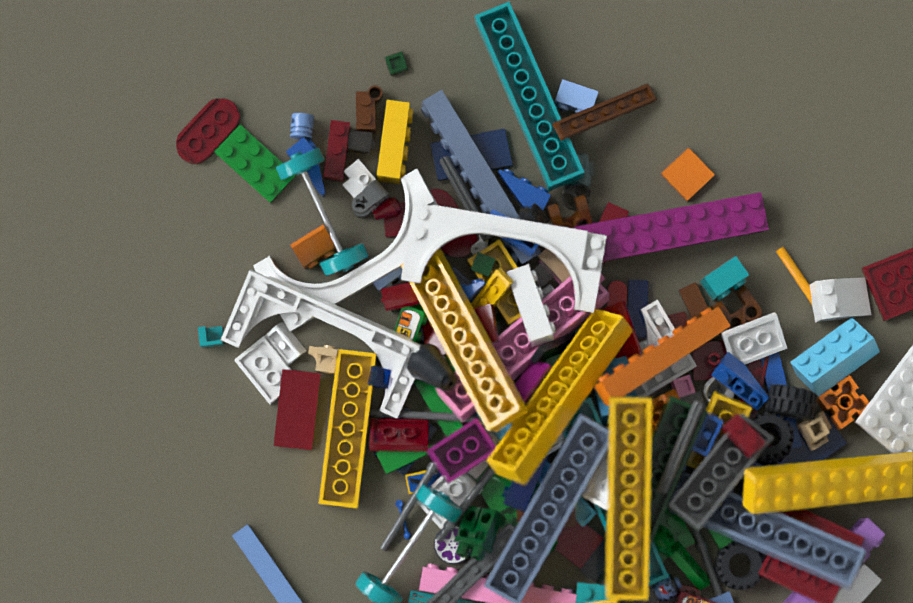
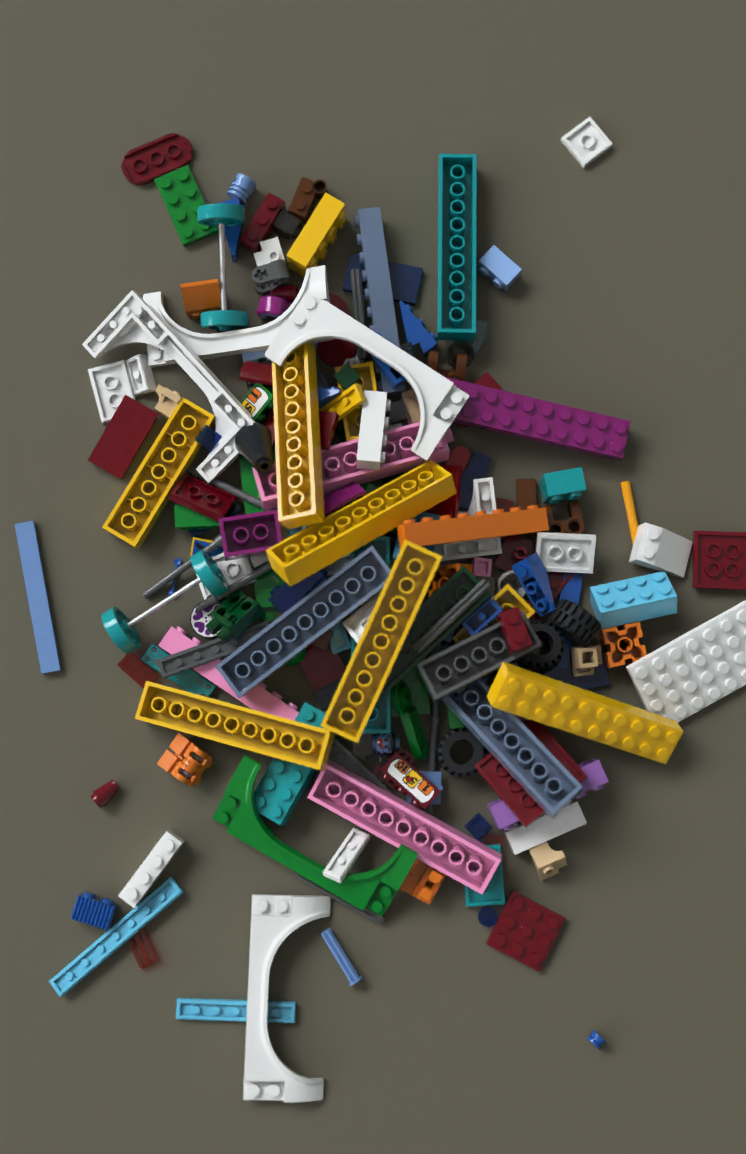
camera: 25 degrees right, 0 degrees up
(210, 336) = (73, 339): teal panel -> none
(384, 227) = (271, 307): none -> magenta animal
(396, 63) = (351, 171): dark green tile -> none
(552, 348) = (373, 478): black tile -> none
(604, 112) = (518, 289): reddish brown tile -> none
(687, 174) = (570, 379): orange tile -> none

